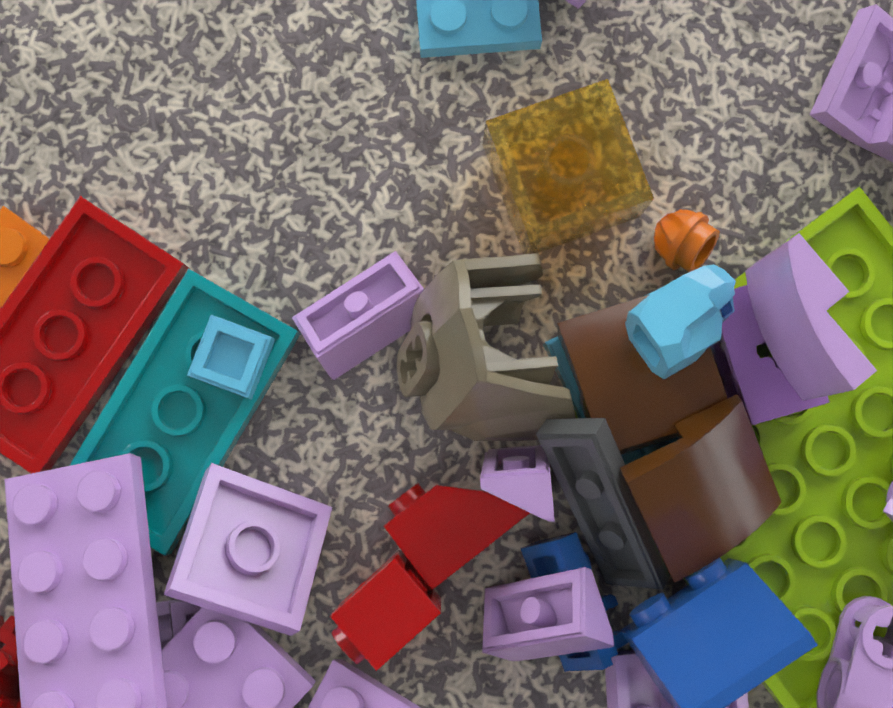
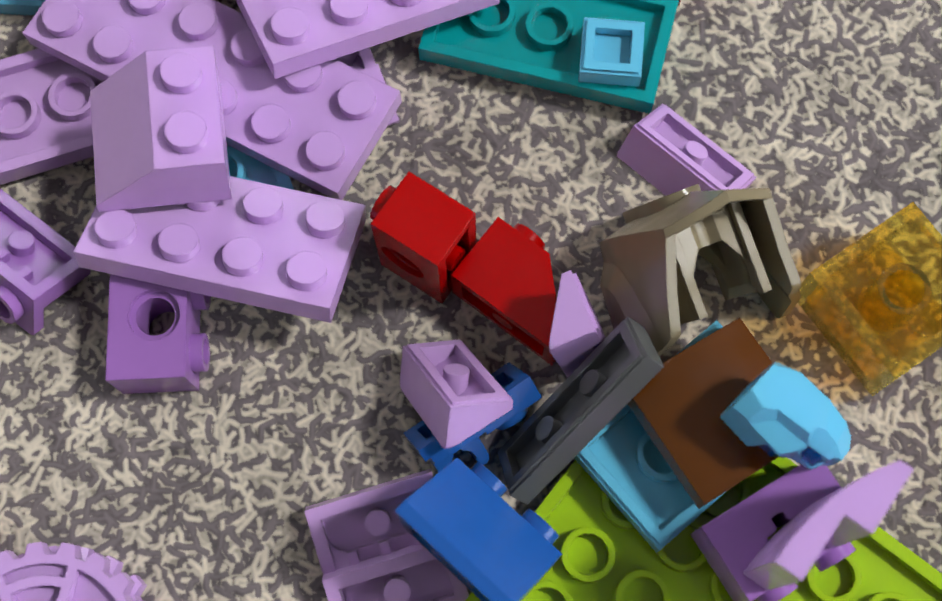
camera: 80 degrees right, 10 degrees down
(249, 551) = (444, 110): lavender plate -> none
(685, 239) = (871, 444): orange plate -> none
(704, 488) = (623, 497): reddish brown slope -> none

